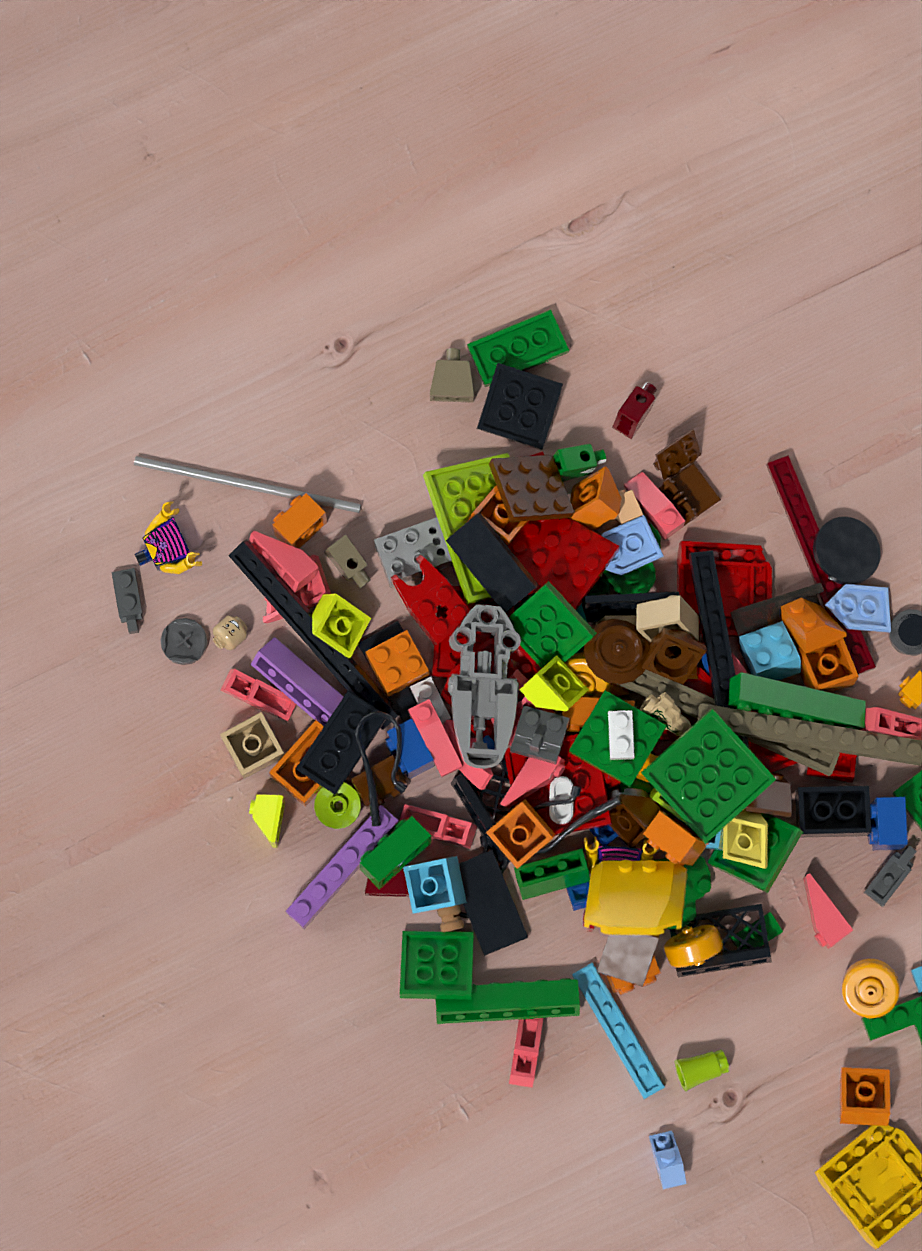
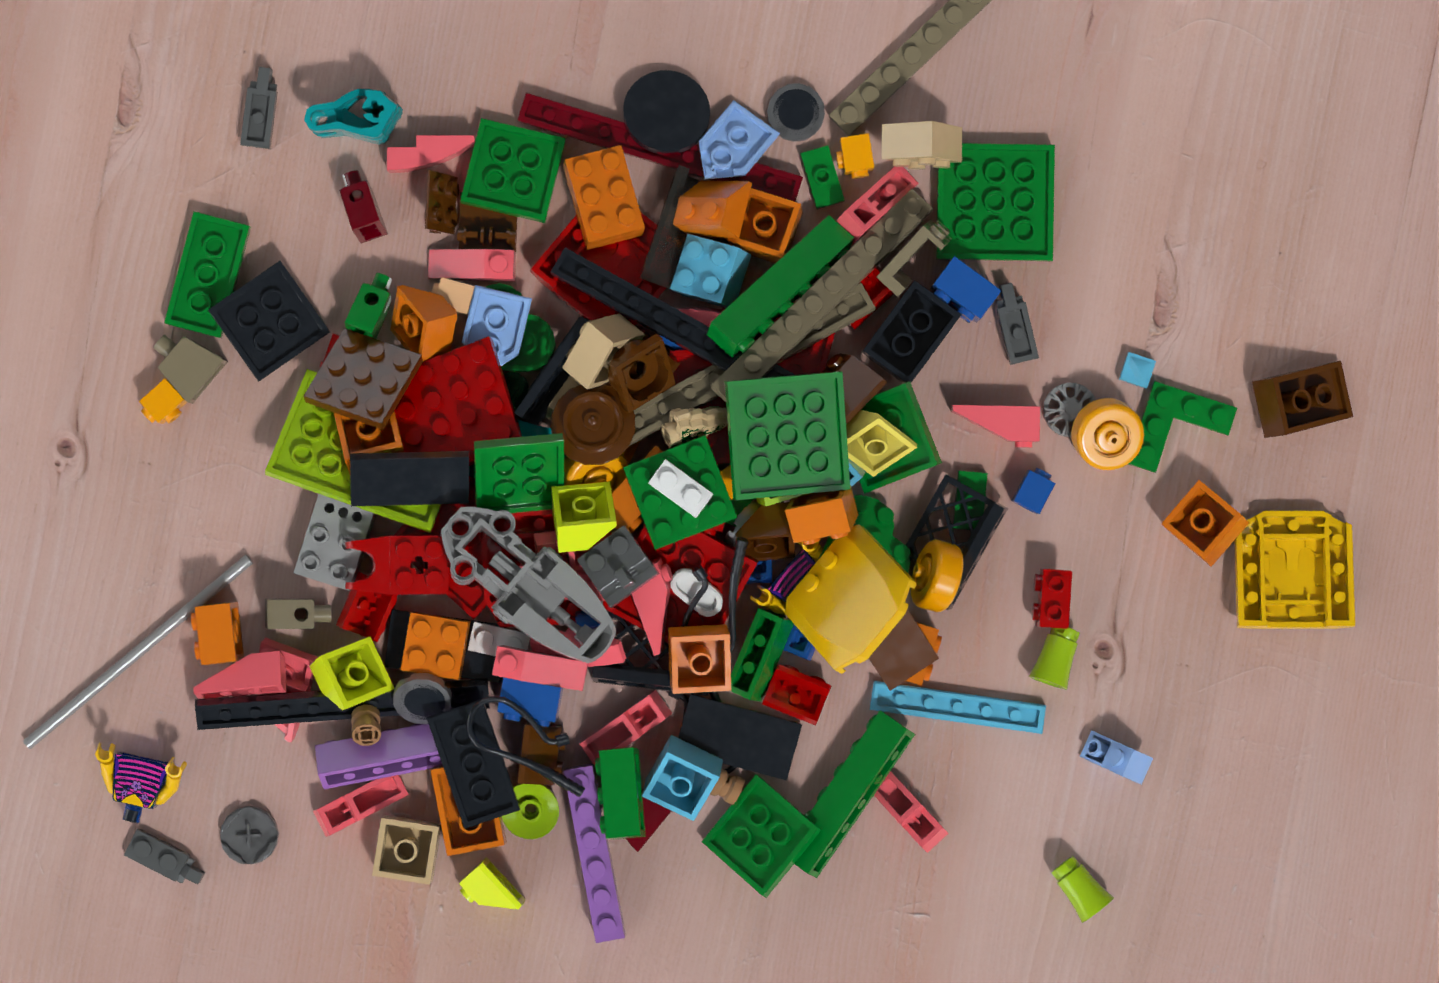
camera: 50 degrees left, 10 degrees up
(229, 633) = (276, 785): tan head -> none
(312, 658) = (366, 725): none -> medium nougat wheel
(358, 677) = (421, 697): none -> tile
(384, 605) = (366, 612): none -> red bracket
(416, 381) = (162, 403): none -> light orange brick
(545, 918) = (796, 694): none -> red bracket
(564, 1203) = (1081, 888): none -> lime plant
(644, 303) = (259, 111): none -> dark grey hinge
(691, 380) = (344, 123): none -> teal piece
(704, 424) = (429, 152): none -> coral slope
(733, 484) = (513, 170): none -> green plate
(738, 1036) = (1053, 598): none -> red bracket
(762, 551) = (603, 197): none -> orange brick
(796, 970) = (1034, 490): none -> blue brick
(865, 951) = (1067, 408): none -> light grey wheel
(879, 767) = (892, 275): none -> dark tan window
(885, 680) = (822, 177): none -> green plate

